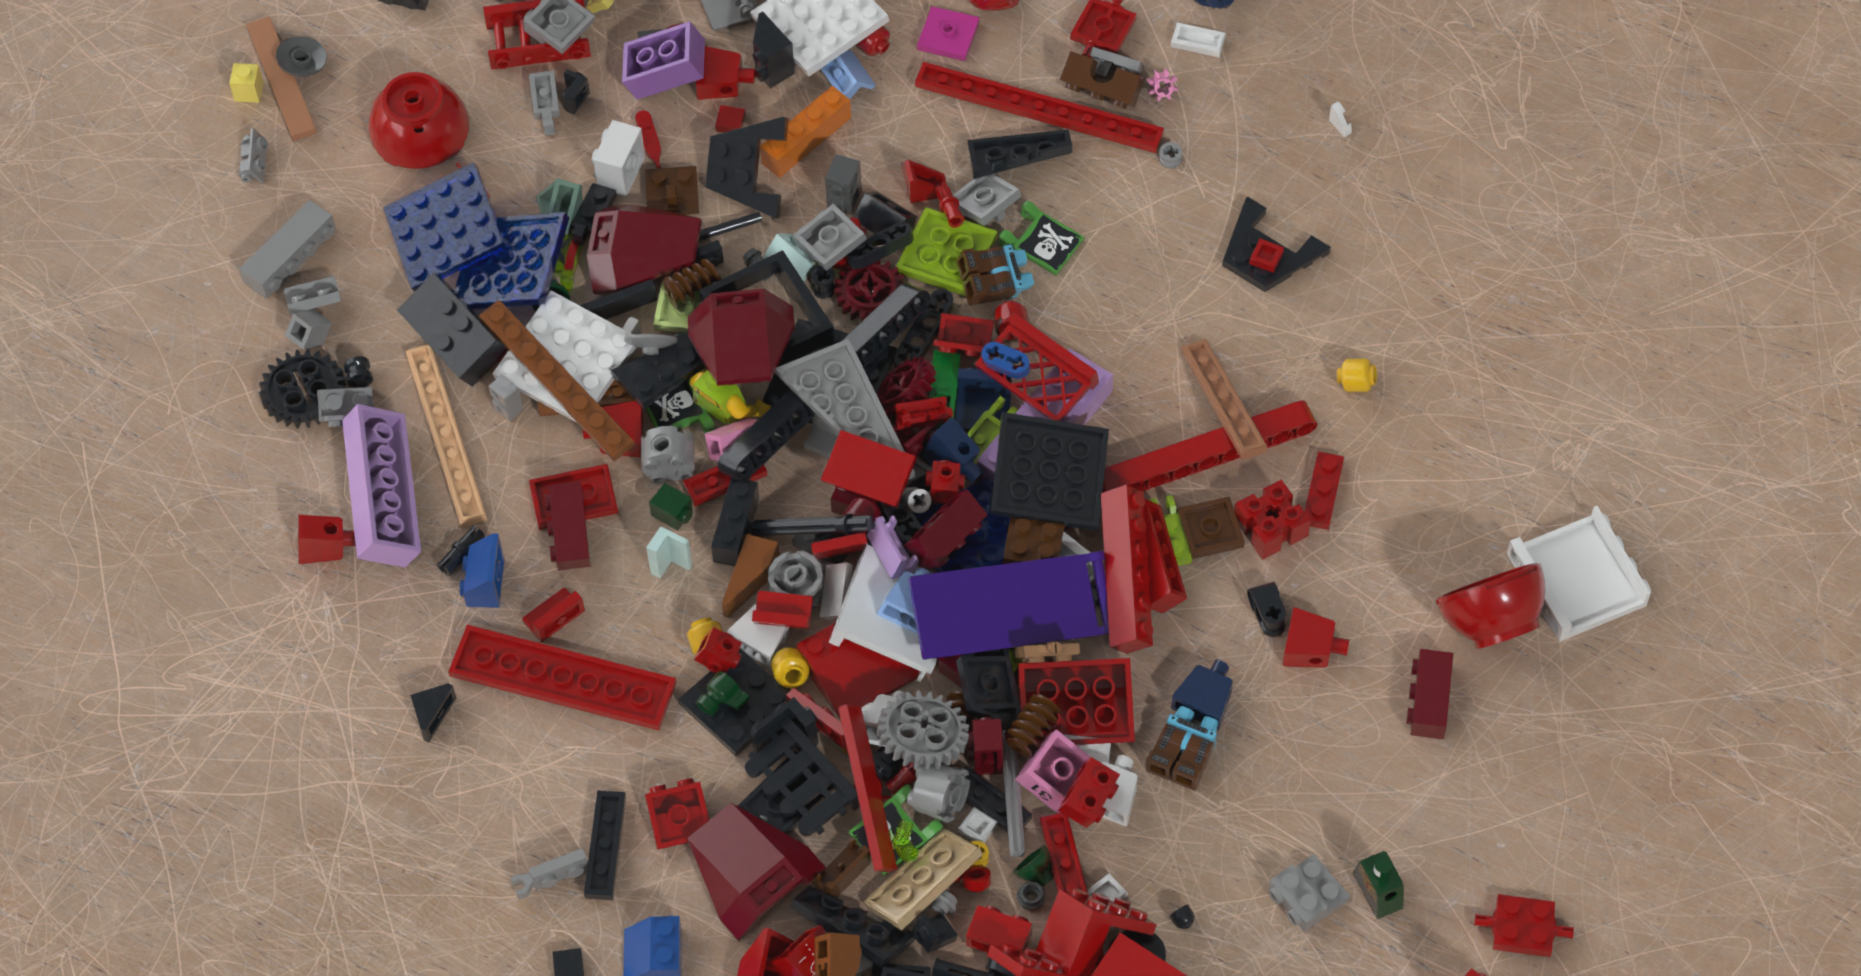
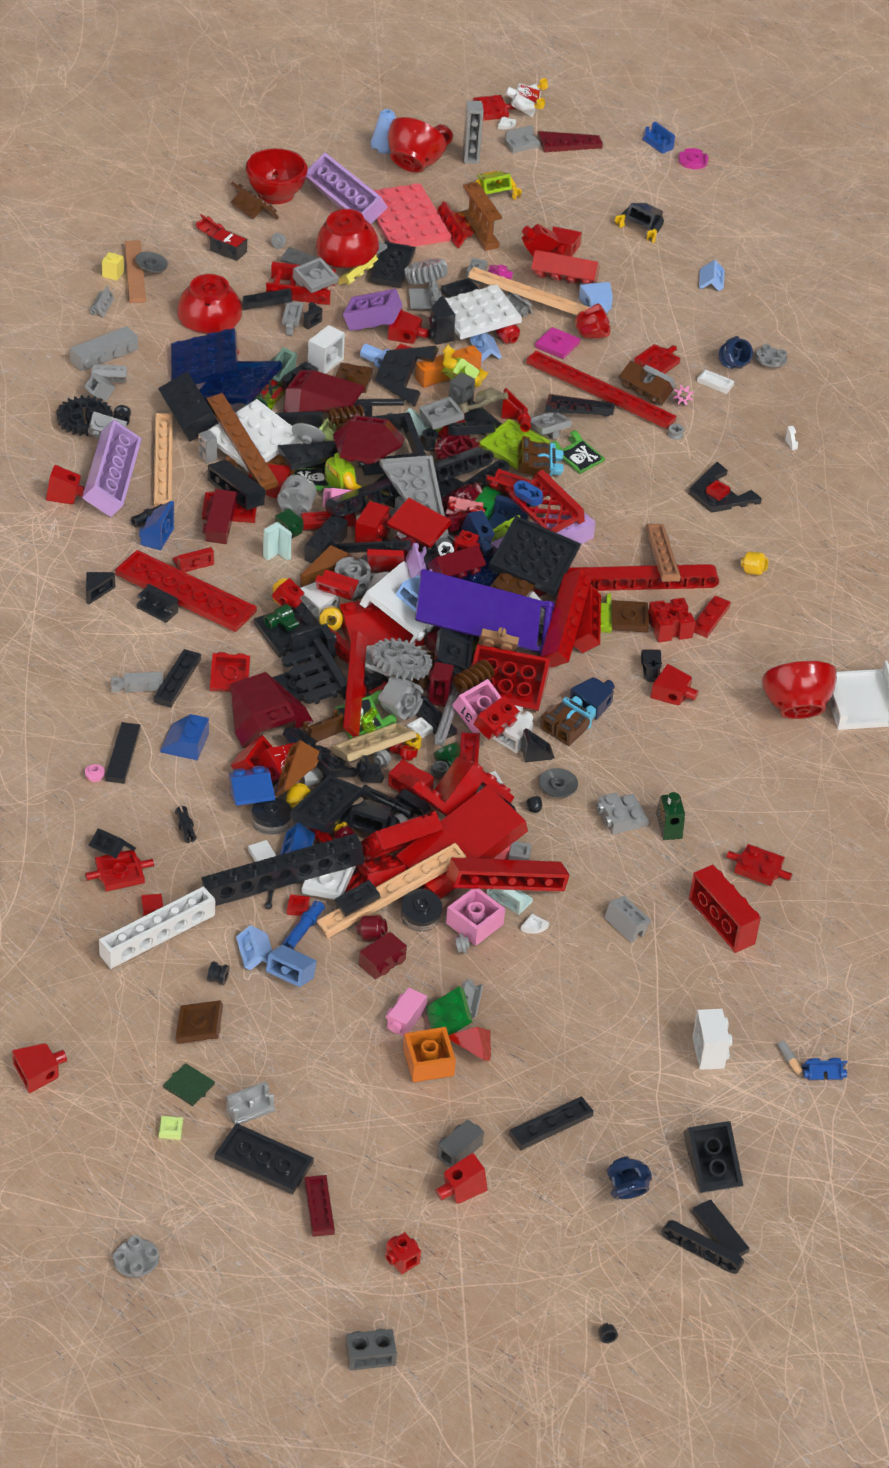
camera: 10 degrees right, 15 degrees down
(497, 78) = (267, 299): none -> black tile
(530, 715) = (158, 603): none -> black hinge
(572, 458) = (229, 478): none -> black brick
(650, 139) = (349, 351): red piece -> none
(692, 140) = (373, 354): none -> light blue piece
(797, 482) = (372, 523): none -> red brick
(830, 143) = (455, 366): none -> torso
(882, 182) = (484, 398): none -> dark tan piece
(1153, 814) = (535, 748): none -> black slope
(1208, 858) = (558, 783): none -> dark grey dish
(1430, 693) = (741, 731): dark red brick -> none

